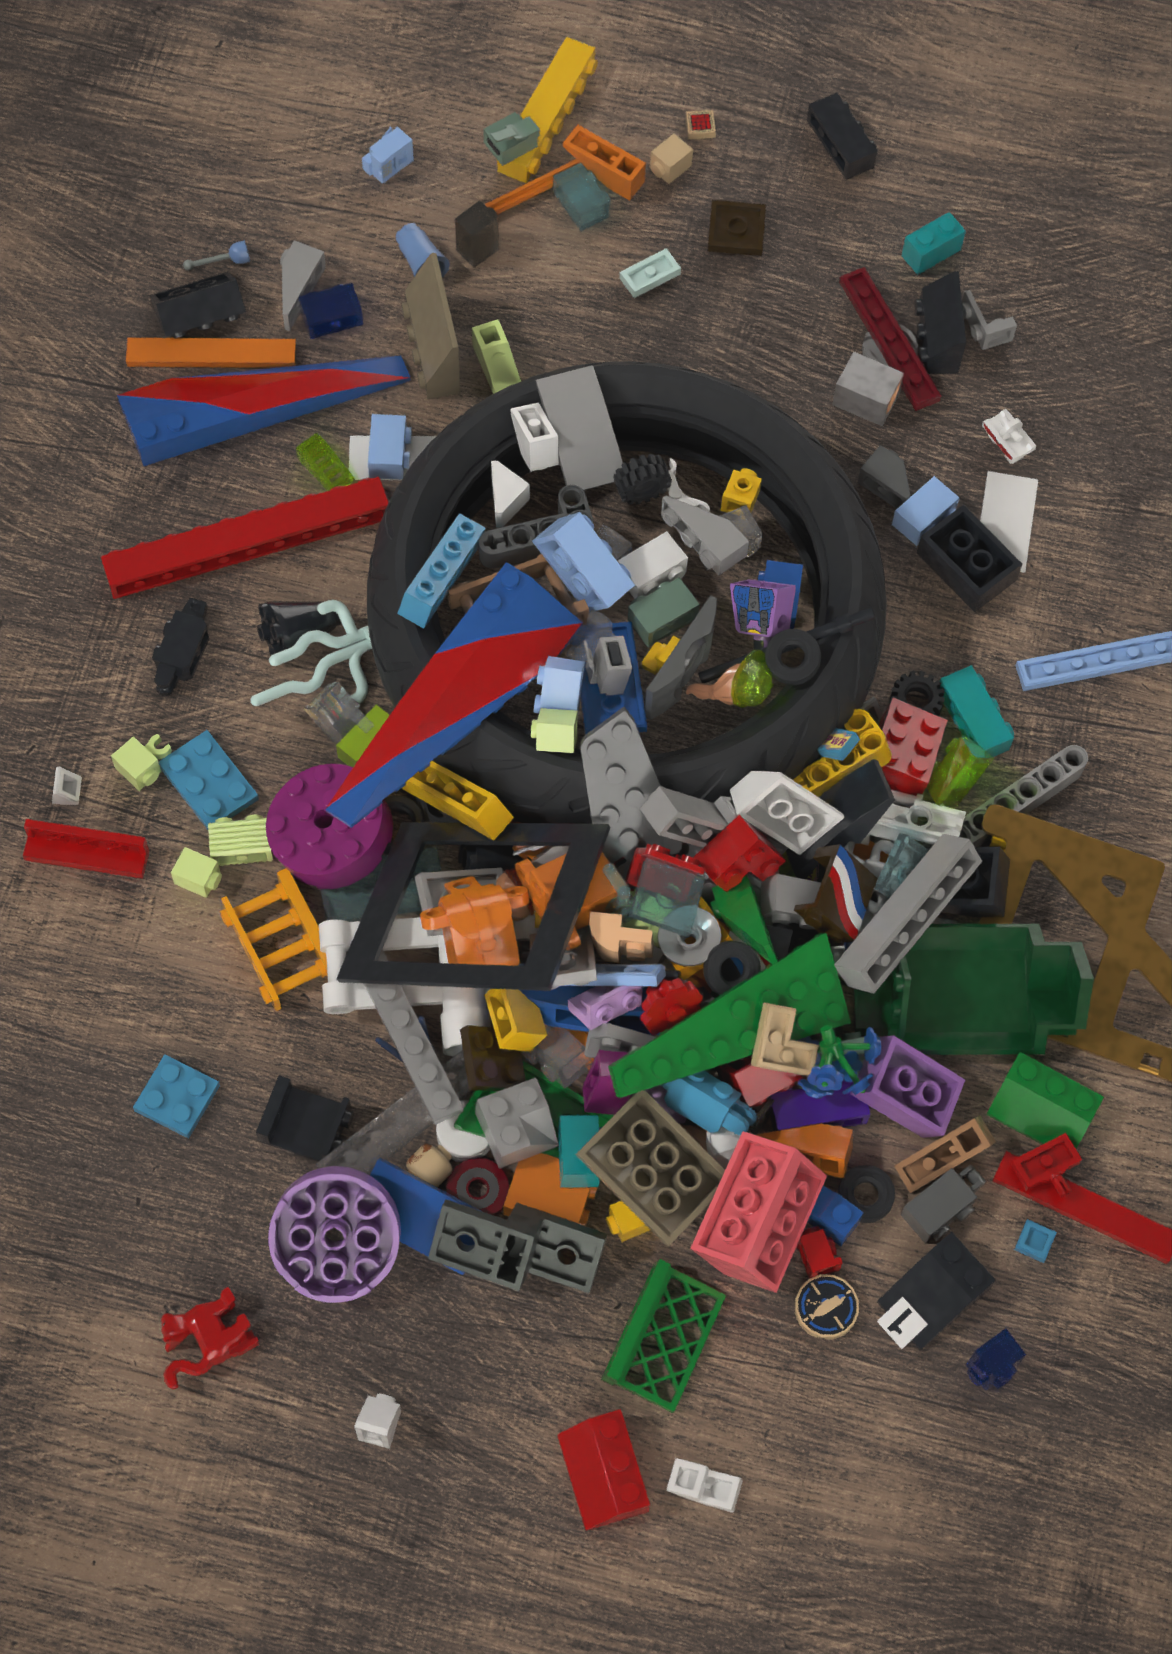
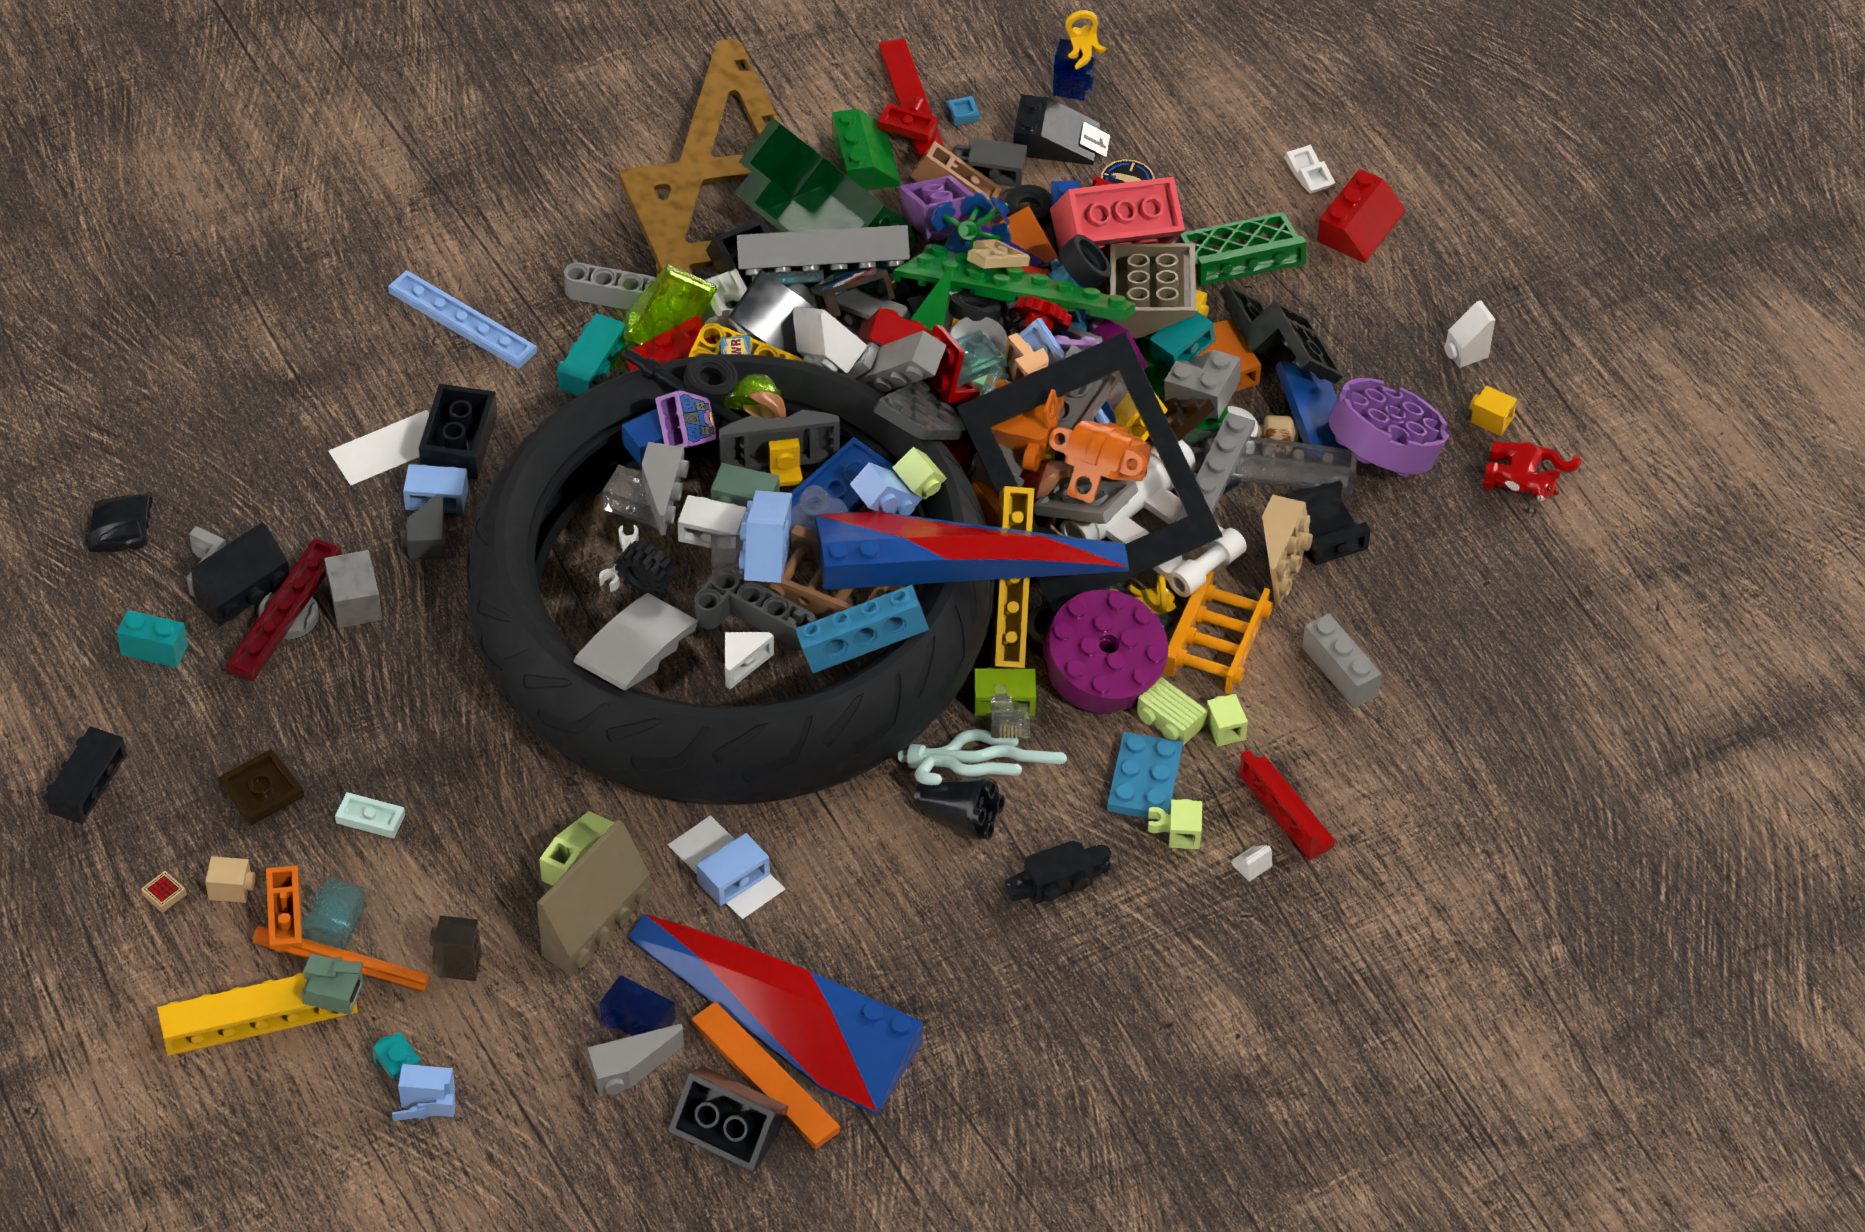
camera: 130 degrees left, 15 degrees down
(164, 1002) = (1341, 660): none -> light grey brick
(176, 1096) = (1394, 612): dark azure plate -> none
(237, 253) = (644, 1130): hinge -> none
(245, 537) = (918, 904): red brick -> none
(291, 1369) = (1492, 410): none -> yellow brick
(305, 1046) = (1286, 540): none -> tan slope
(314, 449) = (788, 926): clear neon green slope -> none
(349, 908) = (1157, 599): none -> yellow piece
(417, 247) = (513, 986): medium blue plant -> none
(431, 153) = (392, 1053): none -> teal bracket
(484, 1172) = (1264, 391): dark red tile -> none
(535, 436) = (673, 663): white slope -> none
(609, 665) = (835, 468): light grey piece -> none
(705, 1135) = (1085, 261): none -> black tyre
(741, 490) = (587, 514): yellow brick -> none
(997, 1362) = (1083, 38): none -> yellow piece
(1009, 436) = (311, 477): white hips -> none
(1073, 298) = (120, 523): none -> black slope

